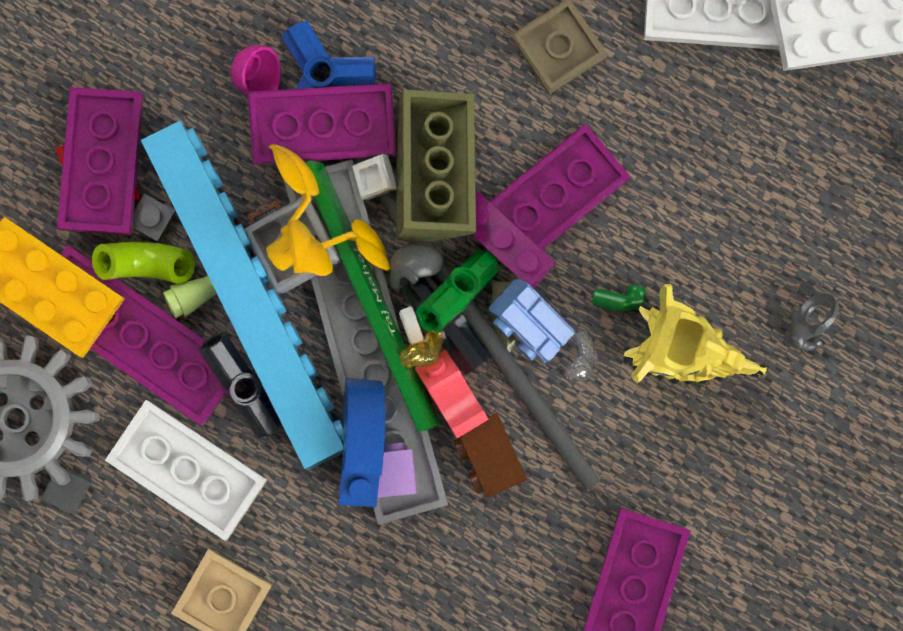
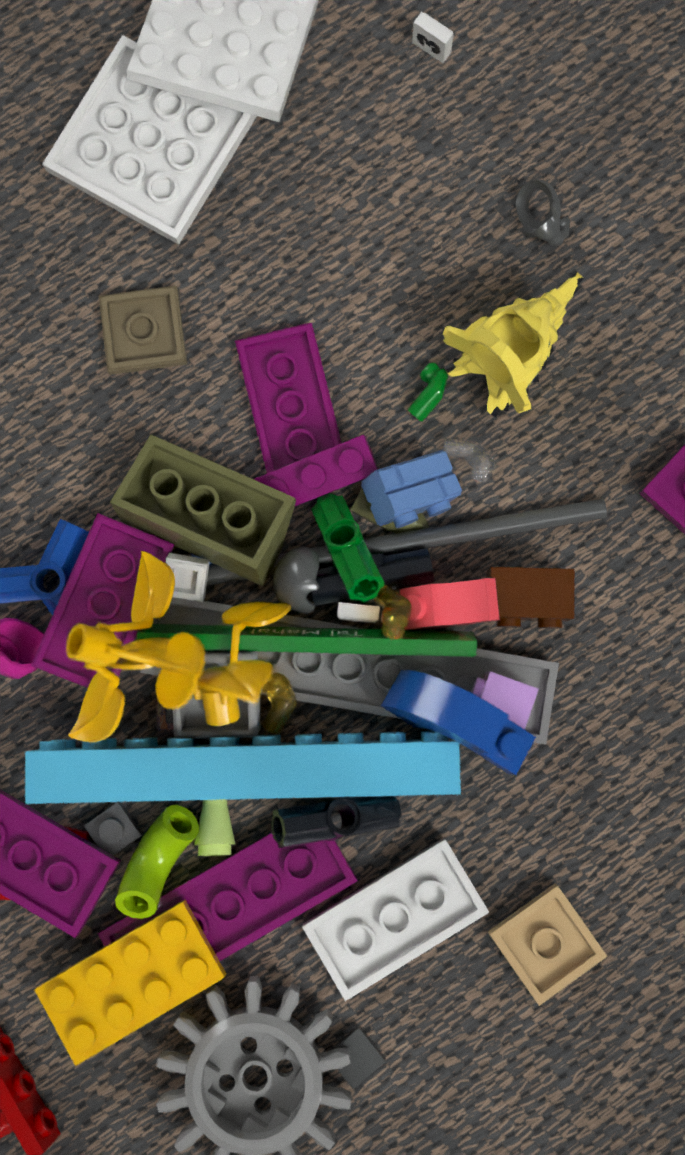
camera: 55 degrees left, 0 degrees up
(284, 137) = (100, 647): none -> yellow plant
(314, 299) = (282, 700): none -> clear yellow arm

